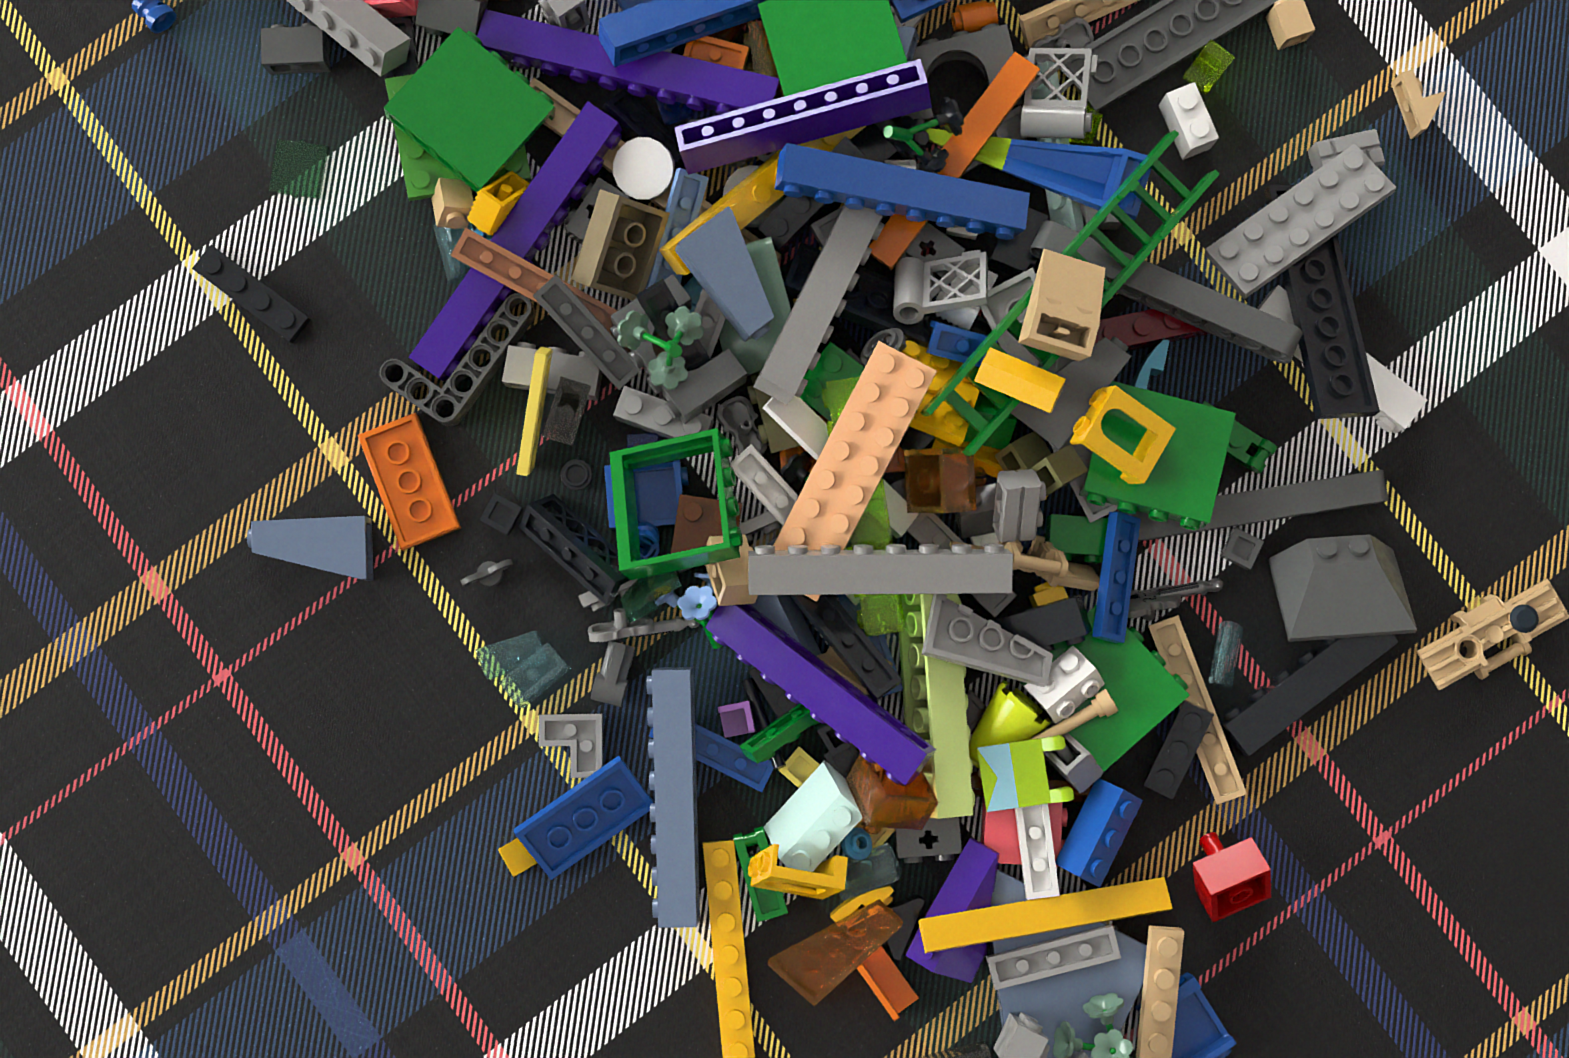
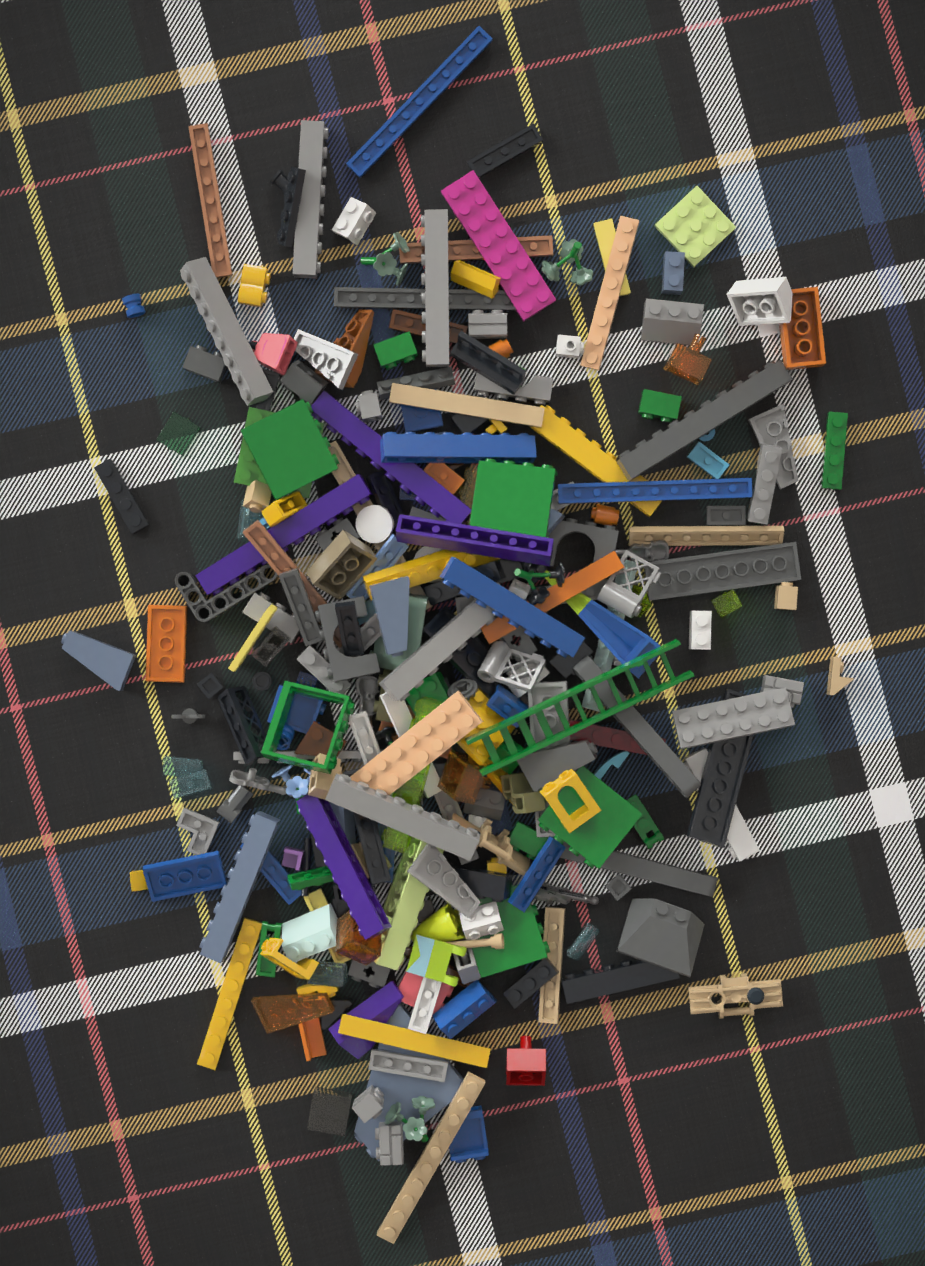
camera: 30 degrees right, 5 degrees up
(641, 596) = (269, 768): clear green slope -> none
(669, 365) = (337, 650): sand green plant -> none
(850, 847) = (323, 957): dark azure plate -> none
(1018, 505) = (498, 811): light grey brick -> none
(1020, 380) = (525, 747): yellow piece -> none
(1064, 306) = (568, 716): tan slope -> none

